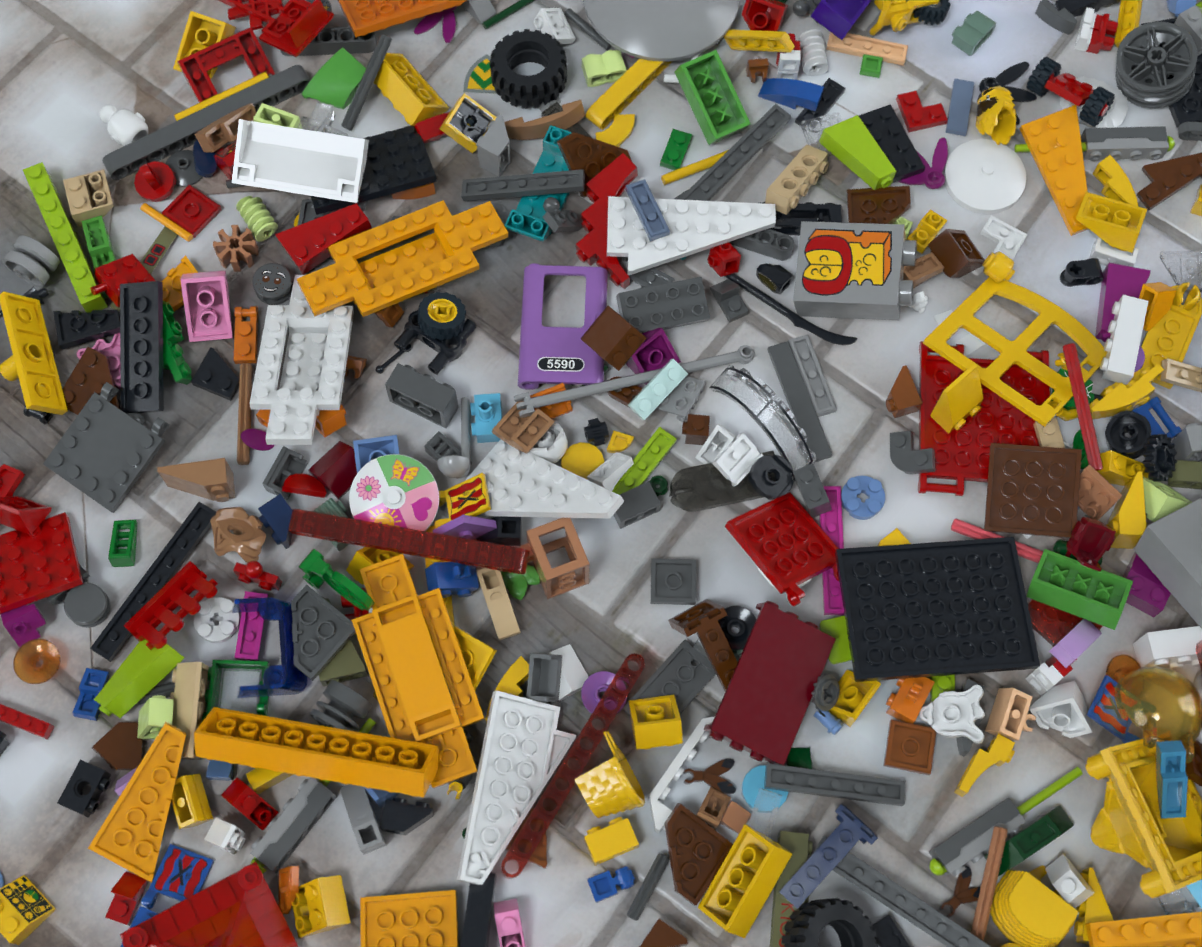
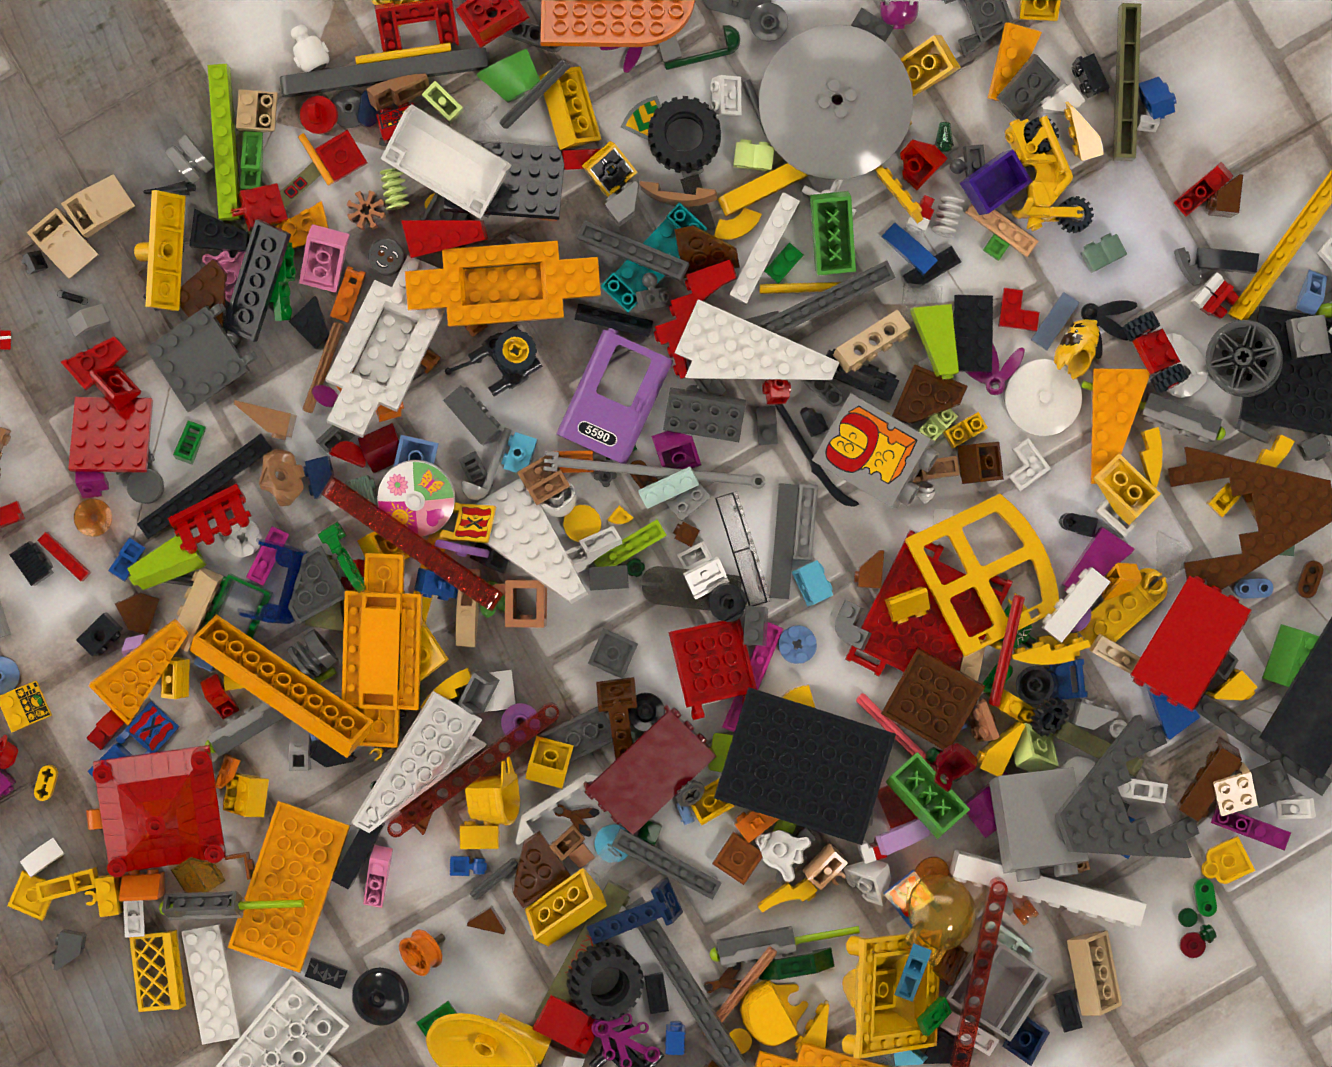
camera: 25 degrees right, 20 degrees up
(153, 716) = (169, 604): yellowish green brick -> none
(225, 836) = (193, 715): white slope -> none
(254, 573) = (285, 517): red plate -> none
(531, 257) = (613, 320): none -> black tile
(586, 402) = (605, 481): none -> dark grey plate
(596, 432) = (603, 502): black gear -> none
(613, 338) = (647, 434): reddish brown slope -> none
(647, 210) = (724, 328): sand blue tile -> none
(652, 135) = (764, 248): none -> white brick
(757, 67) = (888, 211): dark orange tile -> none
(849, 427) = (813, 583): none -> medium azure brick
(998, 267) = (1008, 491): yellow head -> none
(1068, 881) = (805, 1006): white slope -> none

